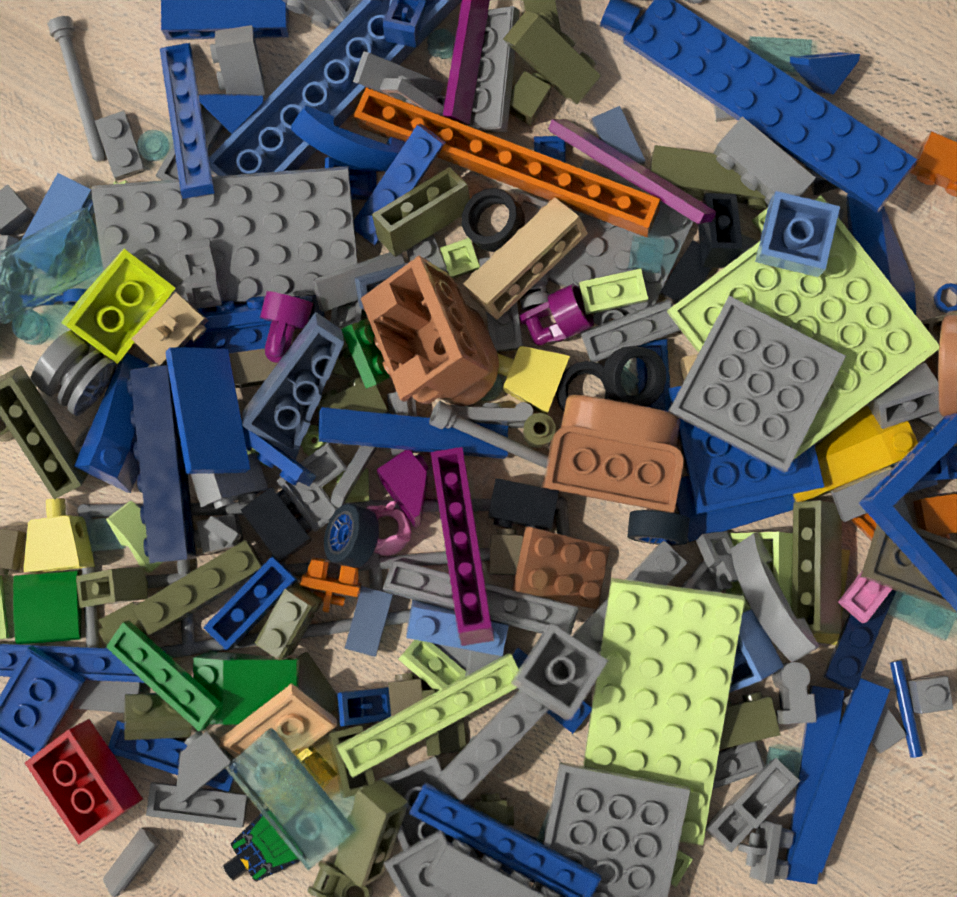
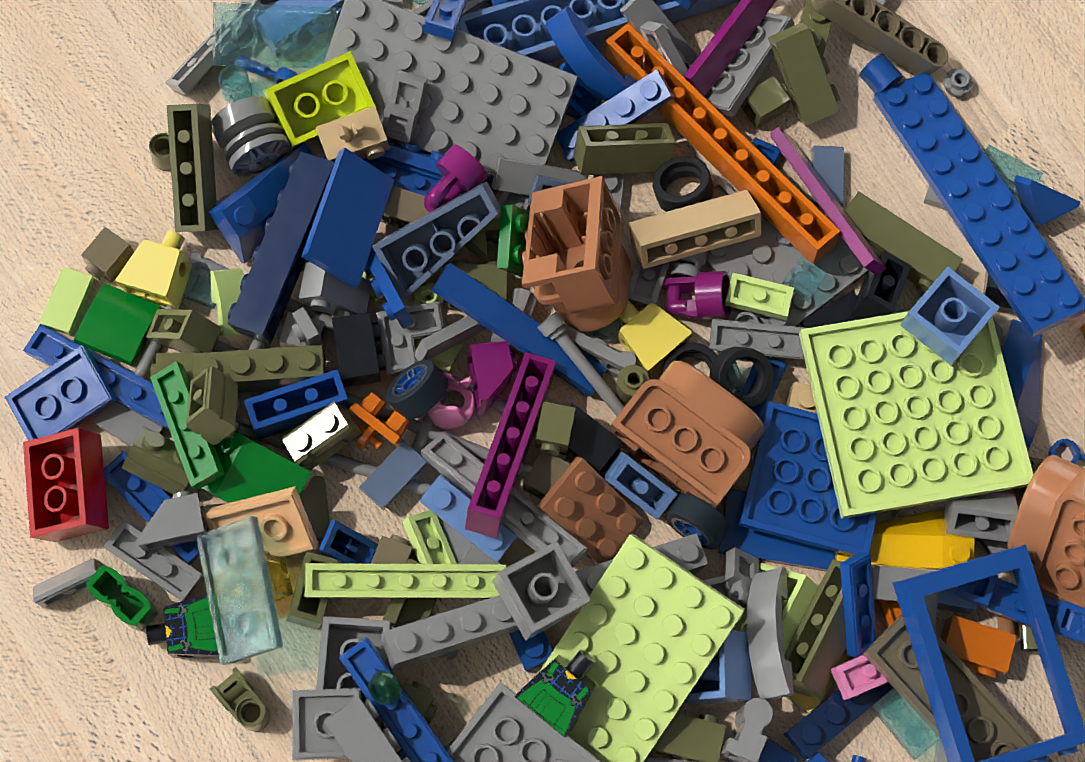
camera: 20 degrees right, 10 degrees down
(178, 648) = (212, 405): none -> olive brick
(197, 857) = (118, 595): none -> green brick
(377, 820) = (305, 651): olive brick -> none
(438, 36) = (711, 16): clear light blue plate -> none
(460, 258) = (636, 204): yellowish green plate -> none
(464, 823) = (384, 688): none -> clear green plate
(494, 513) = (554, 428): none -> olive brick
(590, 521) = (638, 484): none -> medium blue brick
(616, 747) = (560, 691): none -> torso
(757, 384) = (849, 430): light grey plate -> none
(761, 162) = (946, 243): light grey brick -> none
(835, 533) = (858, 603): none -> blue tile

